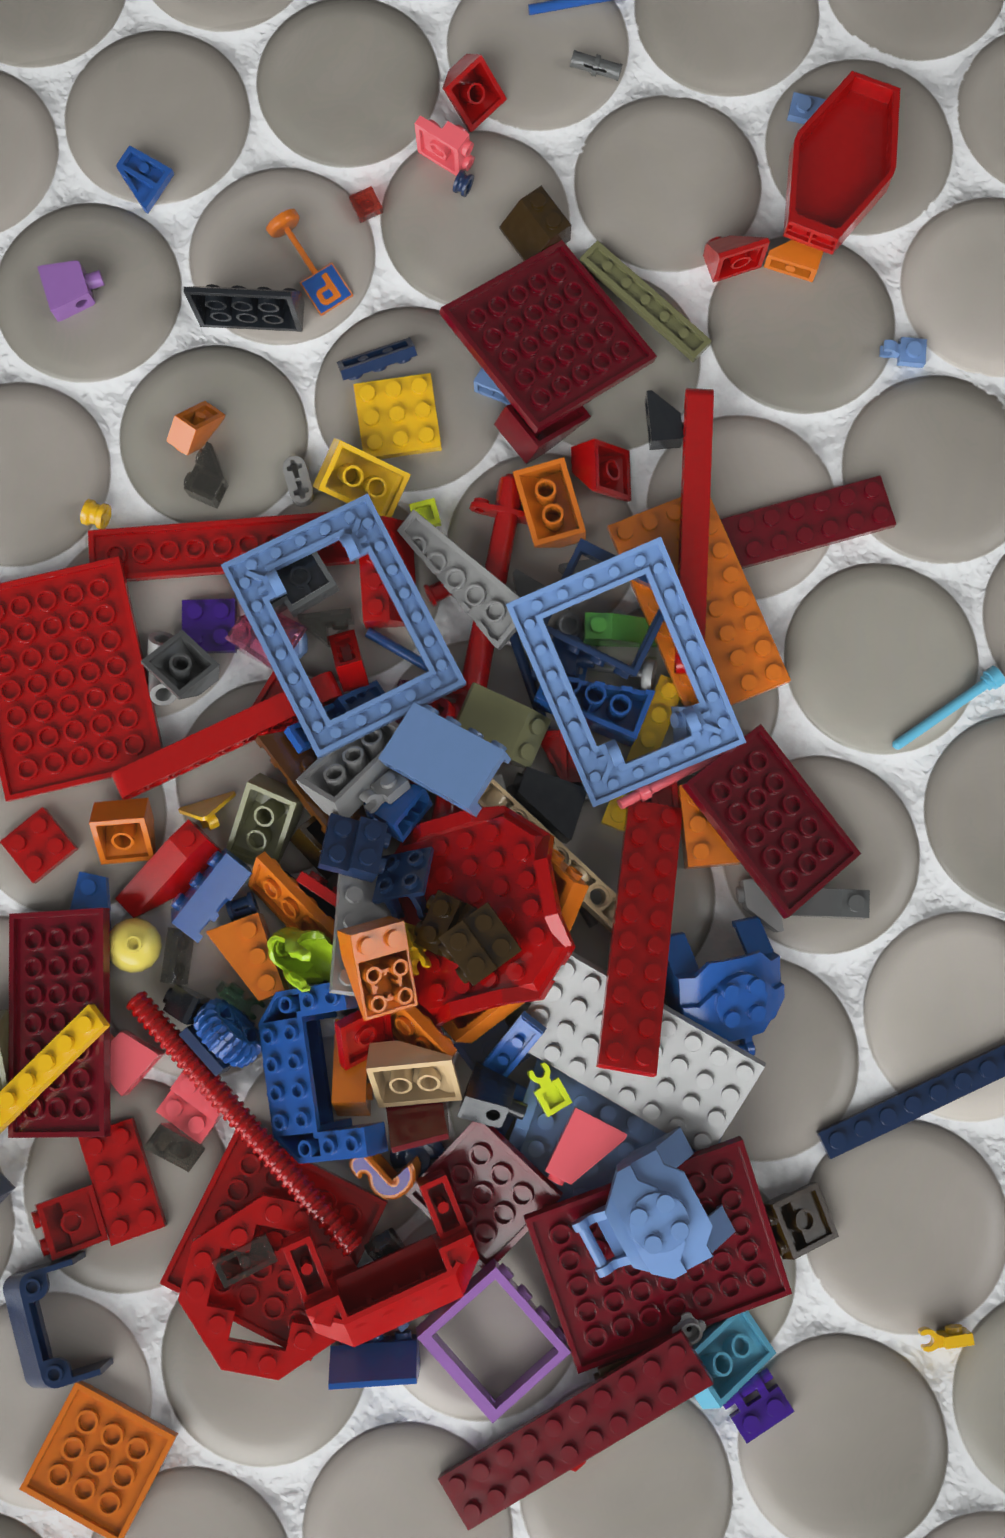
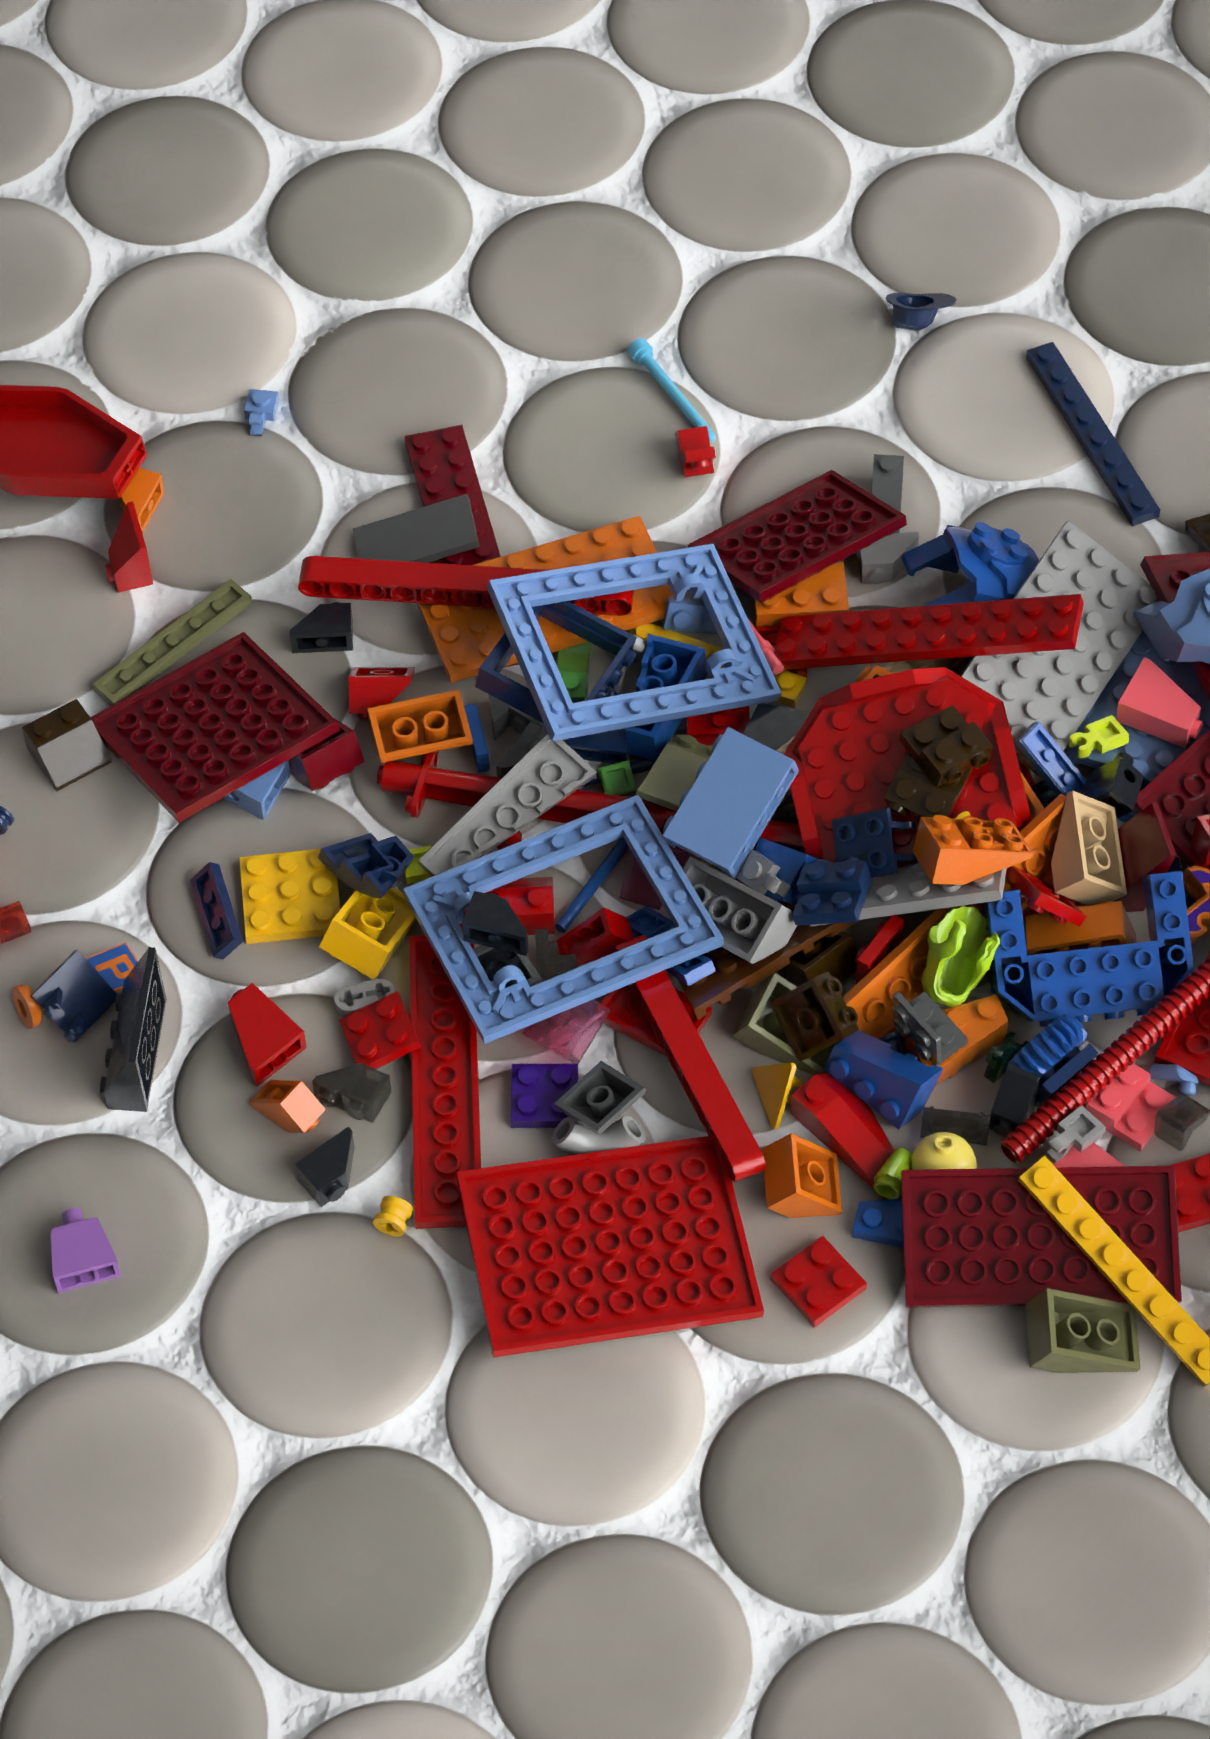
camera: 90 degrees left, 25 degrees down
(124, 904) = (889, 1176): none -> lime cone
(136, 463) = (328, 1168): none -> black slope
(147, 1056) = (1076, 1130): none -> light grey plate
(215, 1152) = (1176, 1073): none -> medium blue arm
(234, 928) = (928, 1027): none -> dark grey bracket
(249, 837) = (815, 1015): none -> dark brown plate
(260, 493) = (380, 1032): none -> red plate
(261, 402) = (264, 1033): none -> red slope
(287, 255) = (74, 996): none -> dark blue plate
(320, 565) = (494, 924): none -> black slope
(414, 471) = (367, 863): none -> dark blue slope
(514, 672) = (617, 779): none -> bright green tile
(550, 553) = (479, 744): none -> blue tile
(762, 490) = (420, 533): none -> dark grey tile
(873, 729) = (695, 451): none -> red brick

